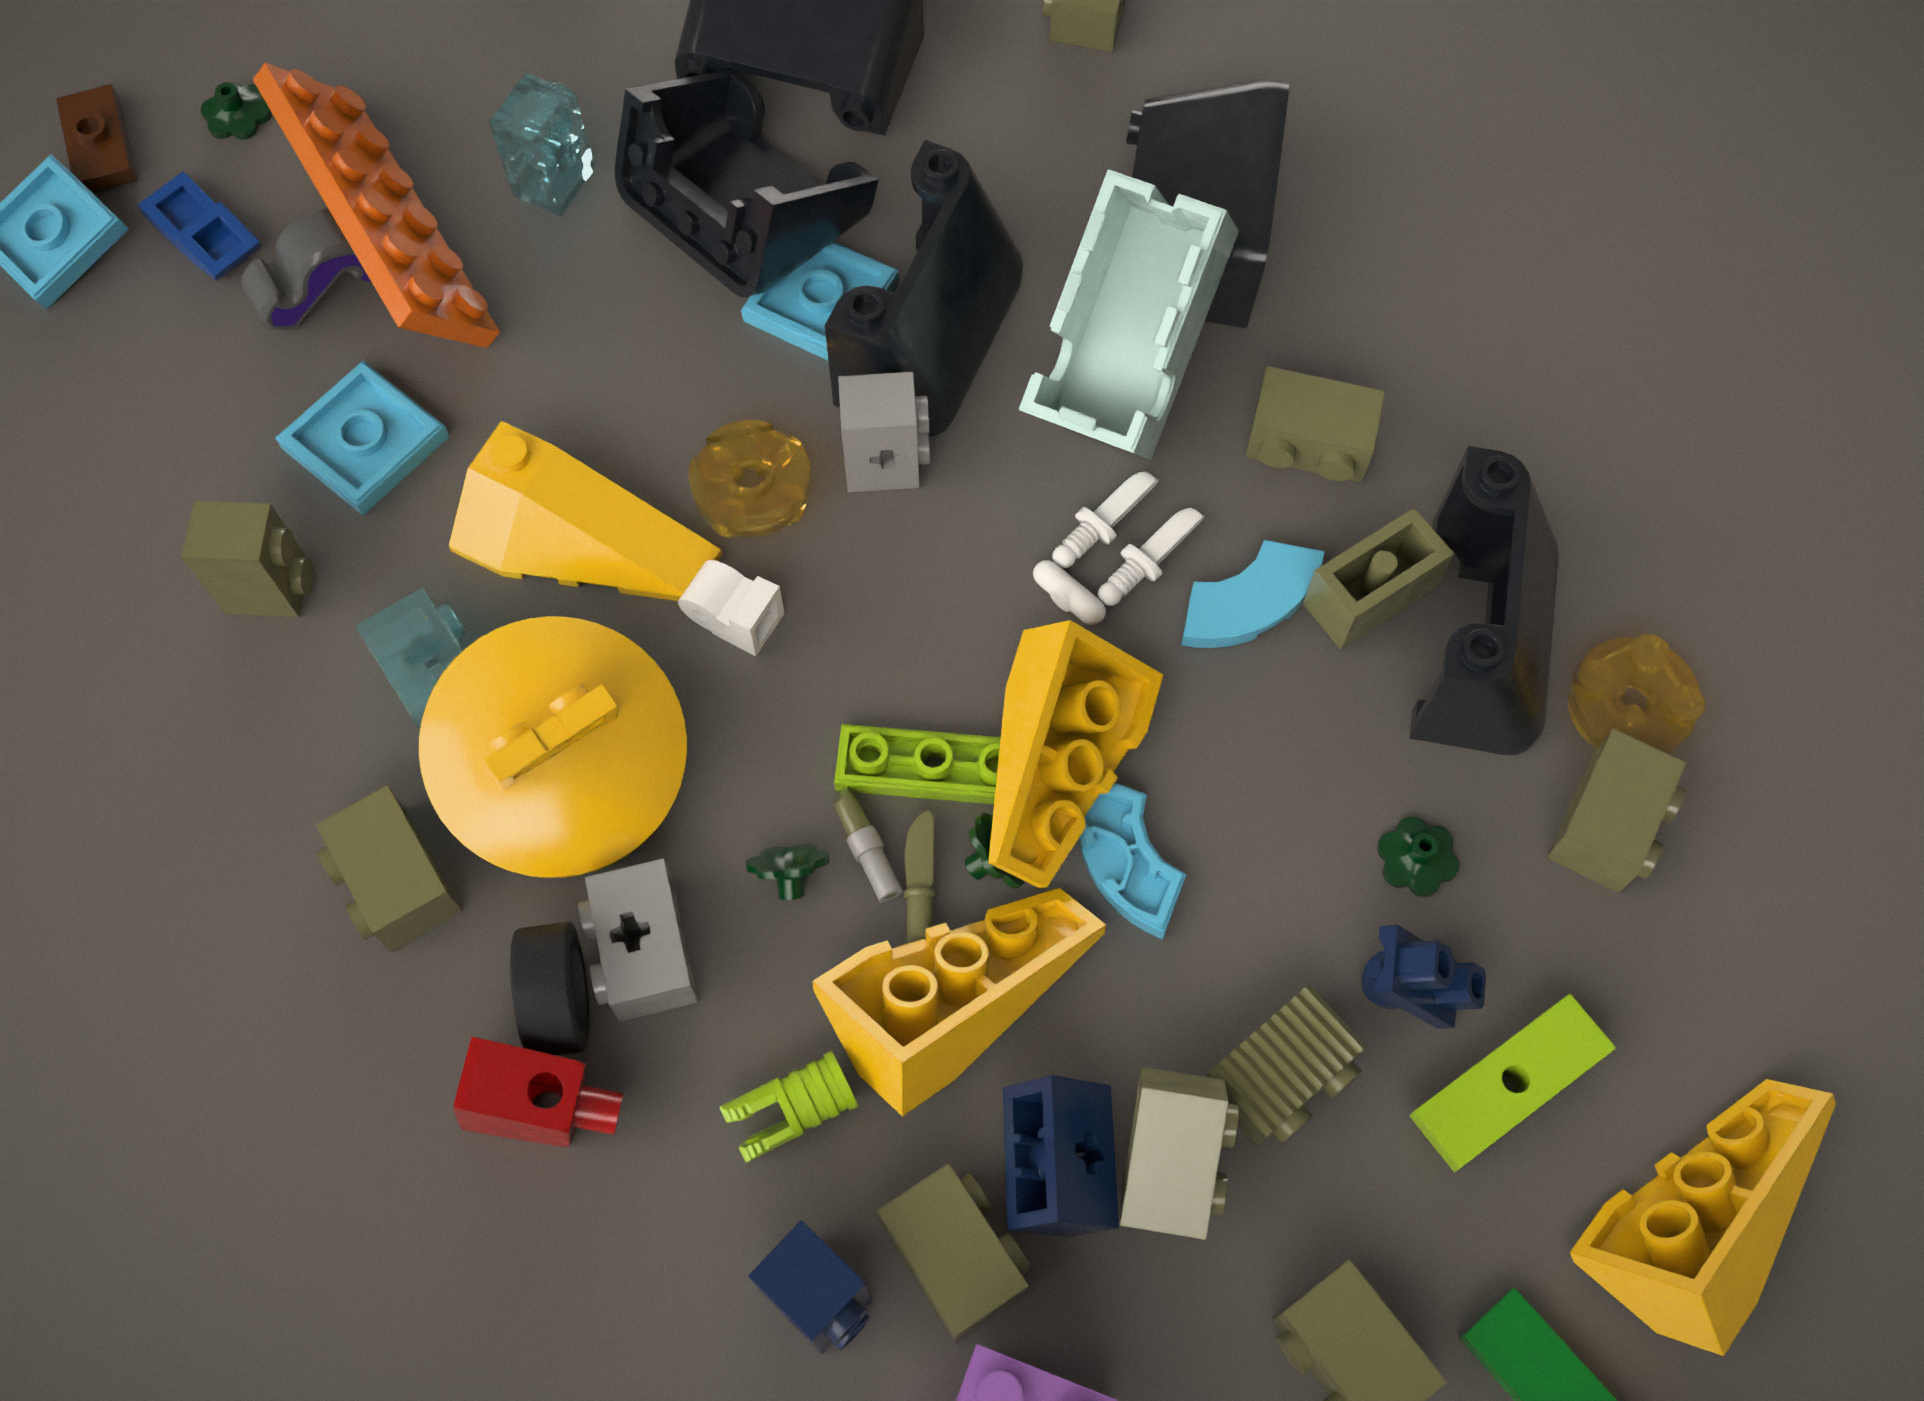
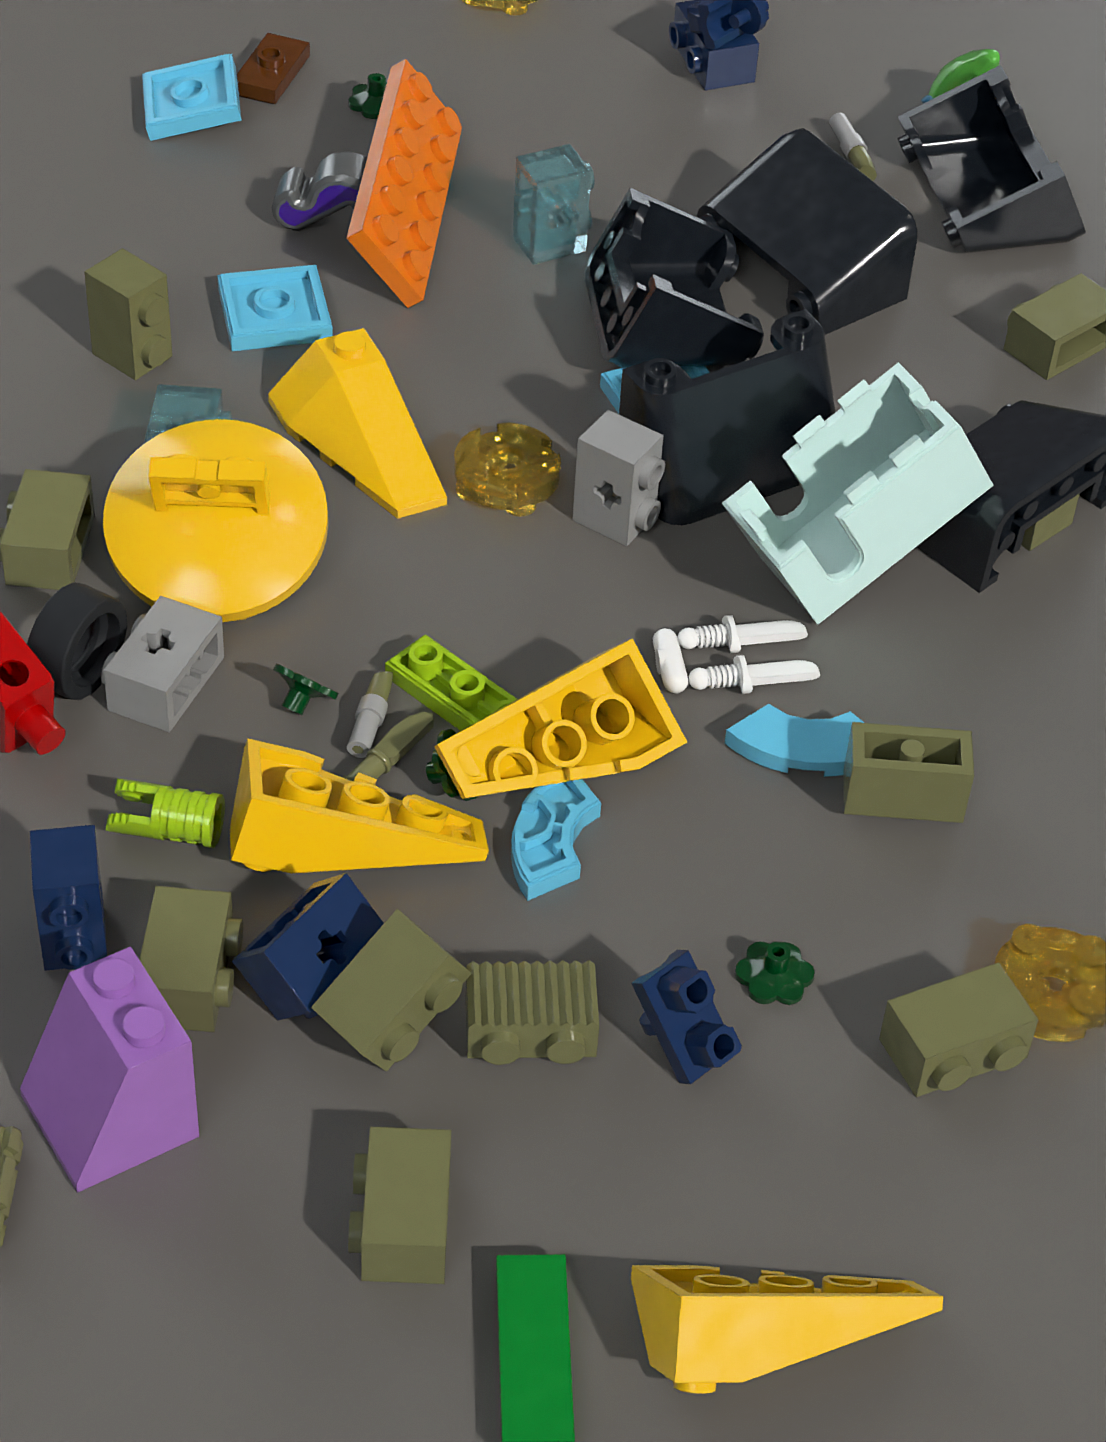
camera: 35 degrees right, 20 degrees down
(199, 226) = (286, 141): blue slope -> none
(733, 605) = (419, 515): white leg -> none
(1315, 424) = (962, 665): olive brick -> none
(1495, 670) = (964, 869): black windscreen -> none
(1540, 1058) = (697, 1136): lime tile -> none

